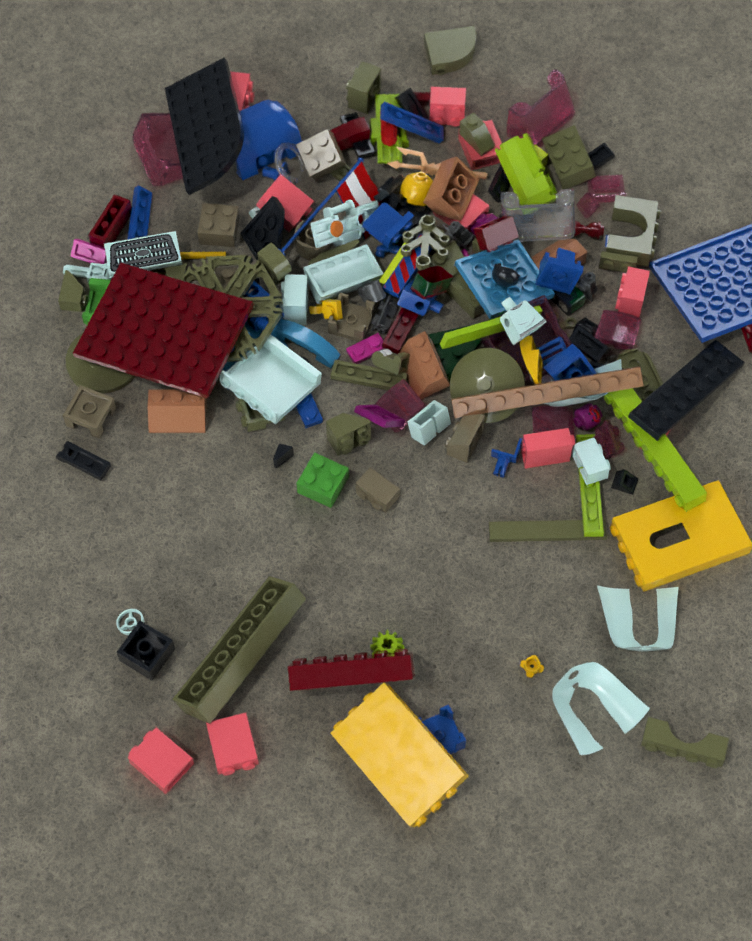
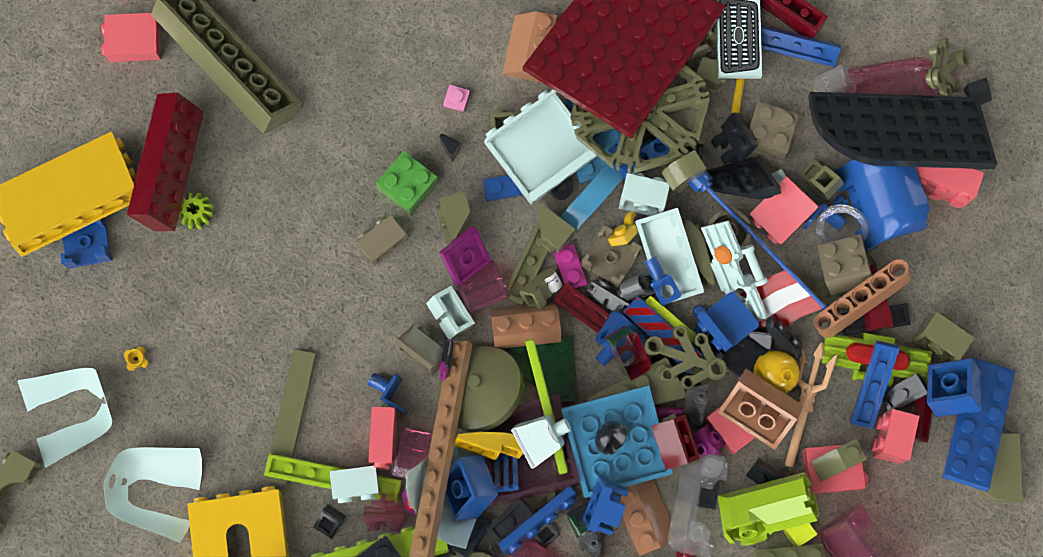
camera: 100 degrees right, 15 degrees up
(130, 111) = (937, 76): none -> olive plant
(155, 96) = (979, 89): none -> black slope
(169, 188) = (832, 80): none -> clear plate
(232, 240) = (738, 136): none -> black plate
(235, 461) = (456, 98): none -> bright pink plate
(254, 181) = (821, 179): none -> olive brick
(340, 358) = (553, 230): none -> olive slope
(345, 127) = (866, 288): none -> nougat beam
(366, 270) = (661, 279): none -> blue bracket
(401, 71) = (954, 387): none -> blue brick
(424, 56) = (978, 433): none -> blue plate
(471, 409) = (446, 359): none -> black piece
(575, 319) = (545, 515): none -> blue plate

